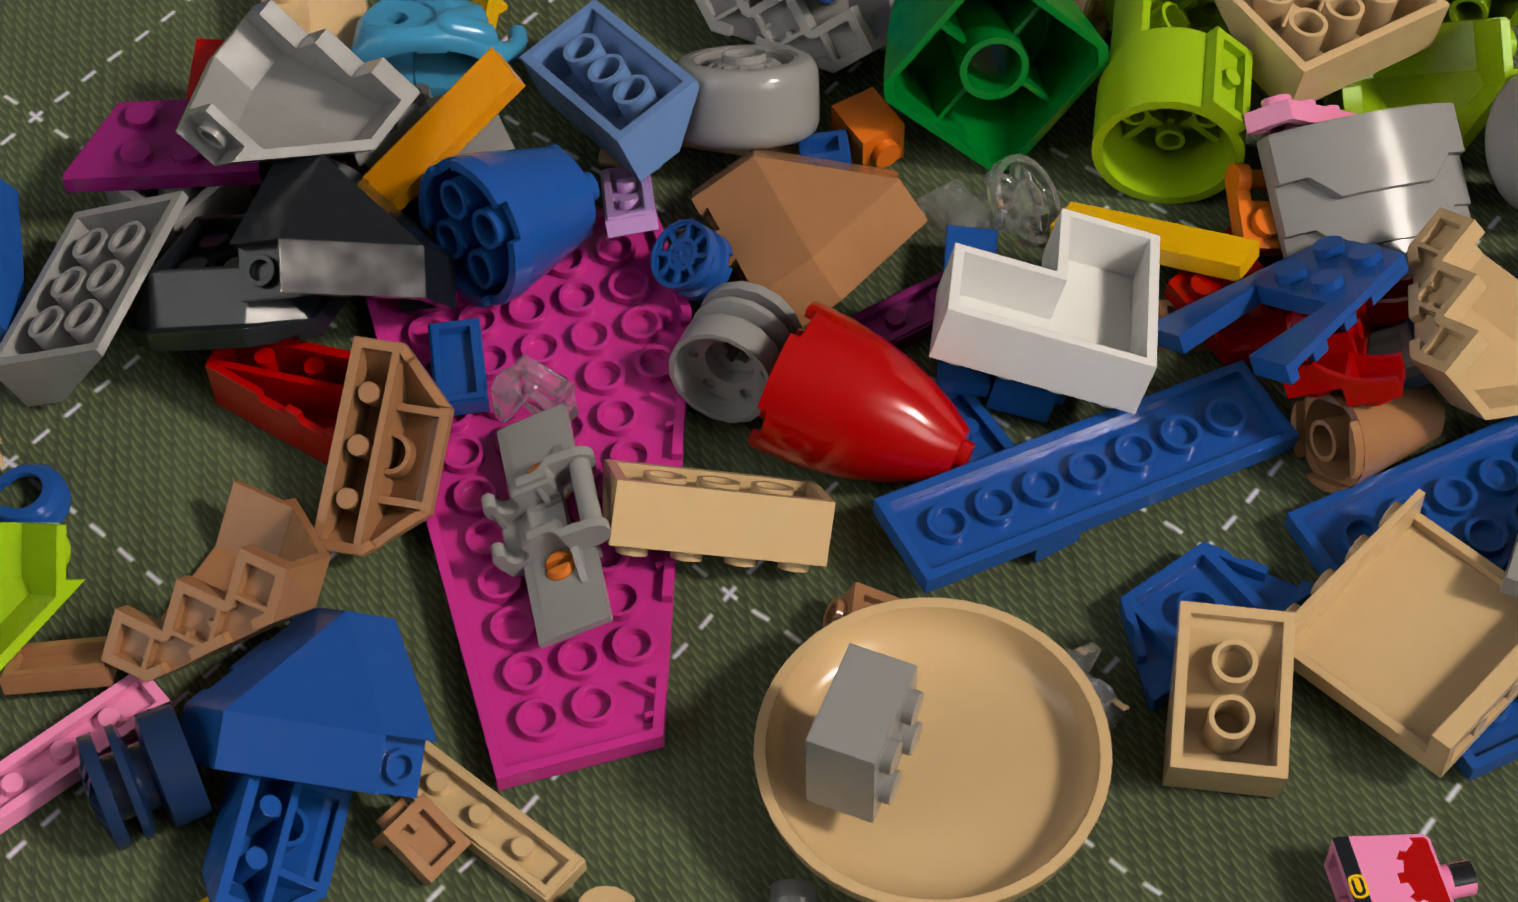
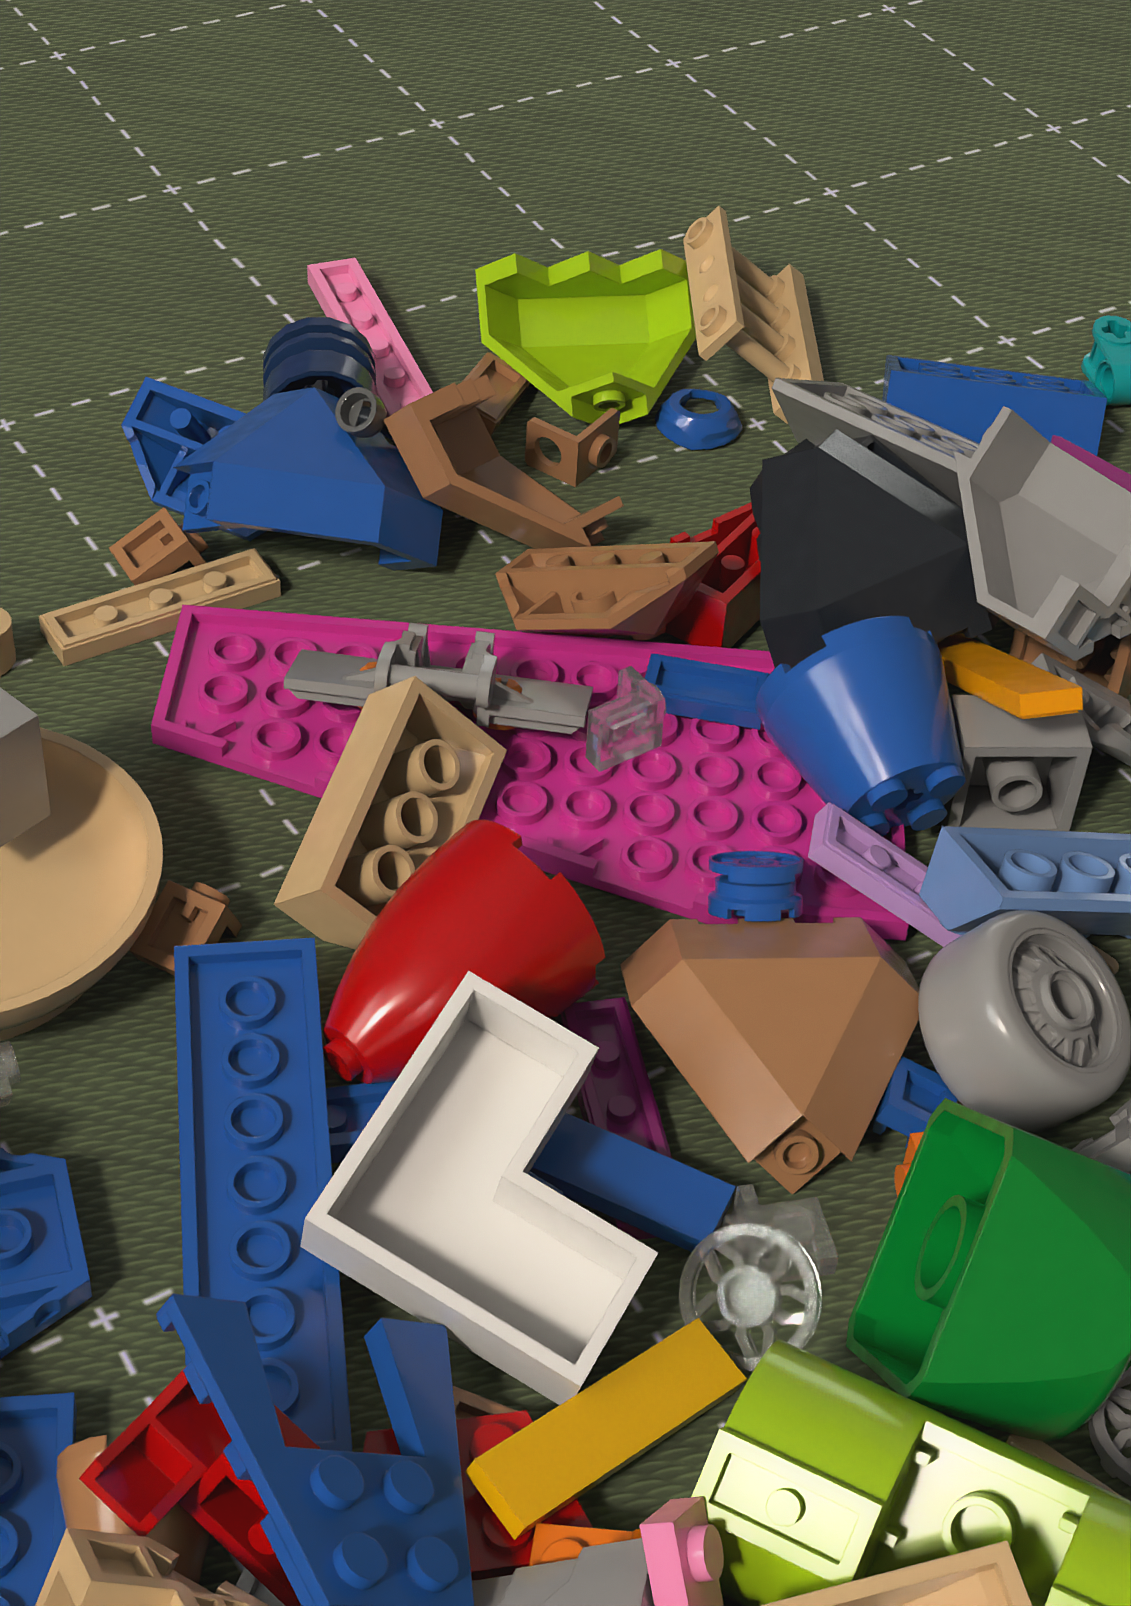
camera: 105 degrees right, 10 degrees down
(129, 553) = (580, 453): none -> medium nougat bracket
(254, 649) = (361, 413): none -> dark grey hinge
(731, 350) = (622, 892): light grey wheel -> none

